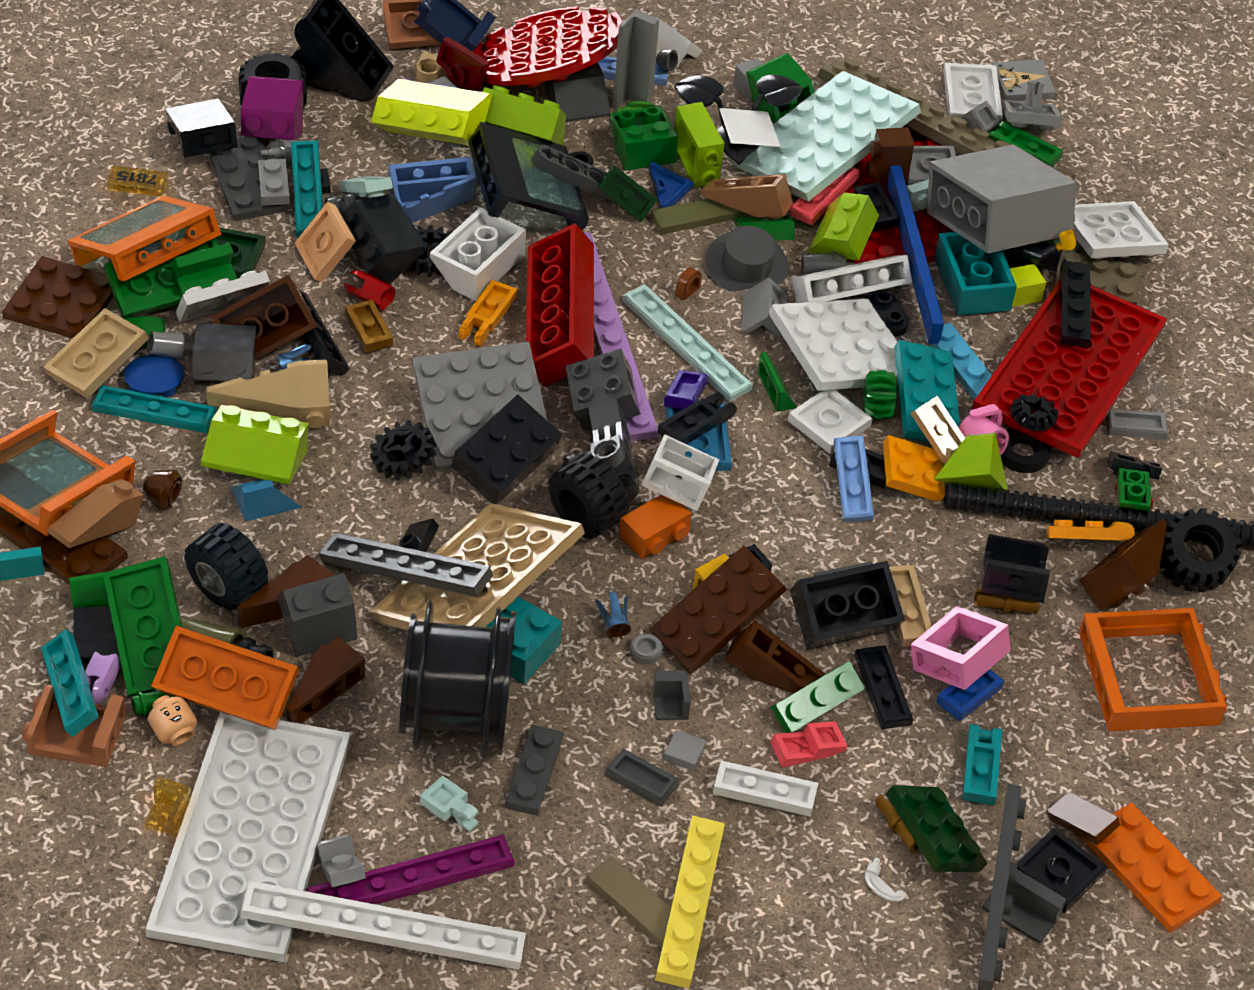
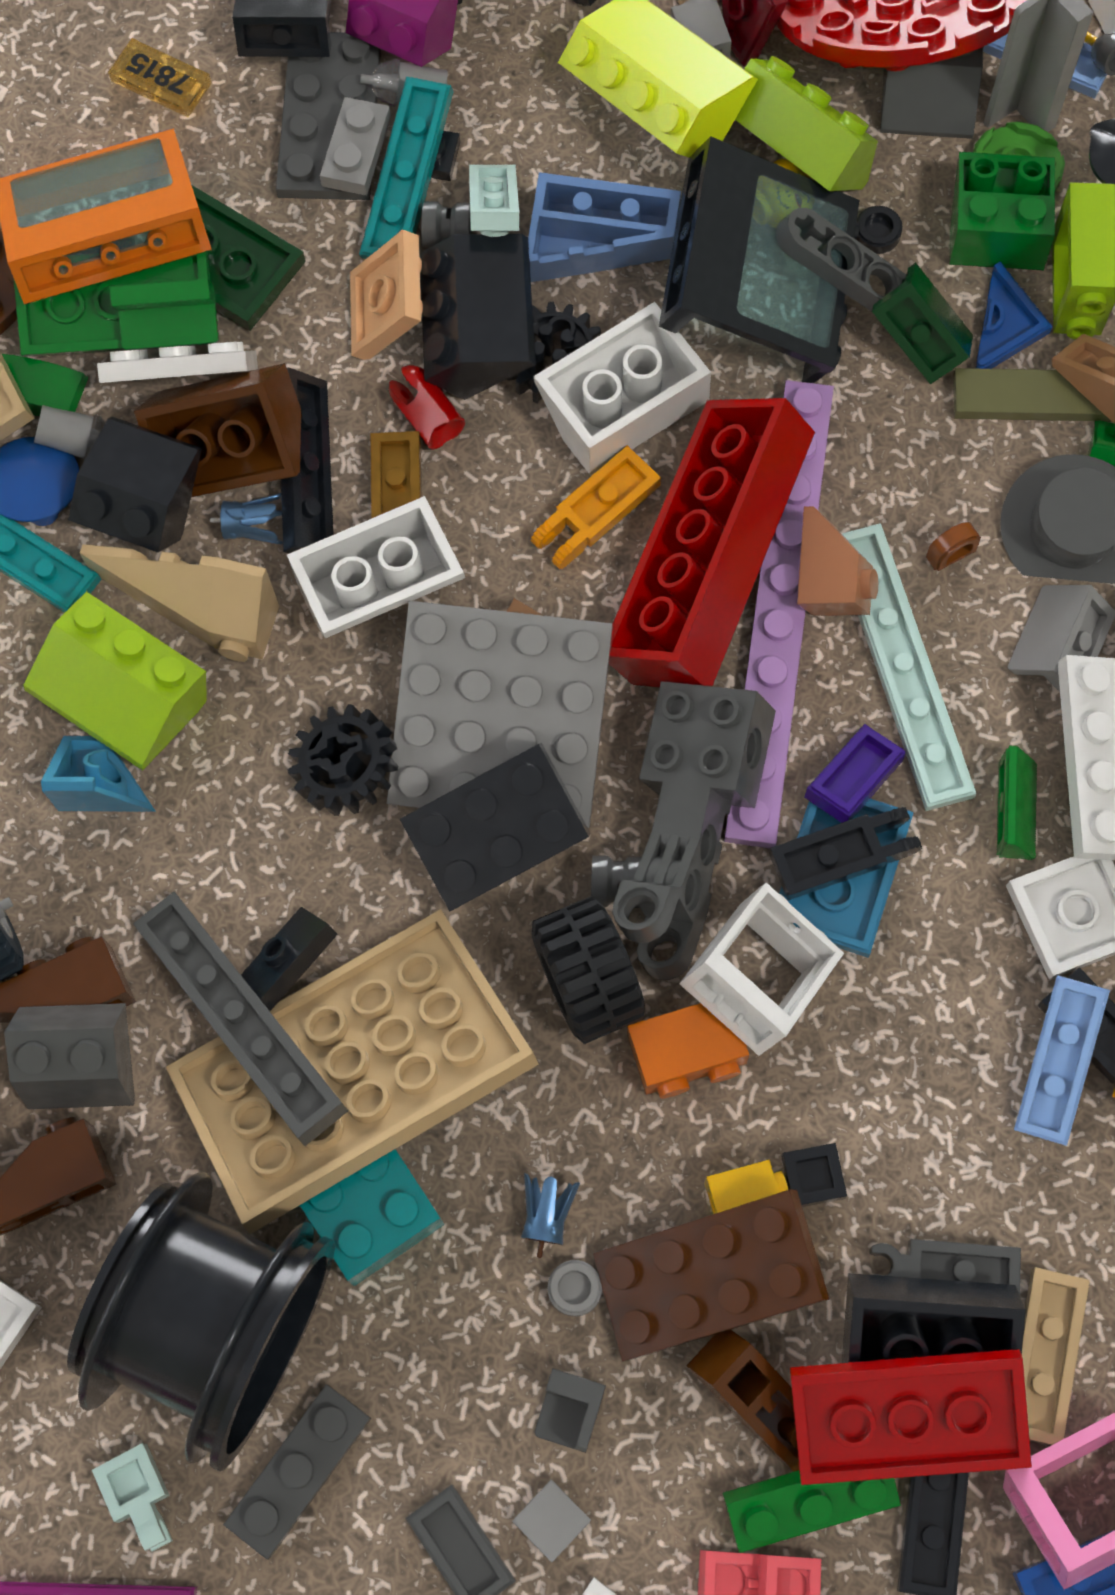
camera: 30 degrees right, 25 degrees up
(378, 357) = (374, 567): none -> white slope
(632, 304) = (832, 571): none -> nougat slope
(851, 628) = (911, 1417): none -> red plate

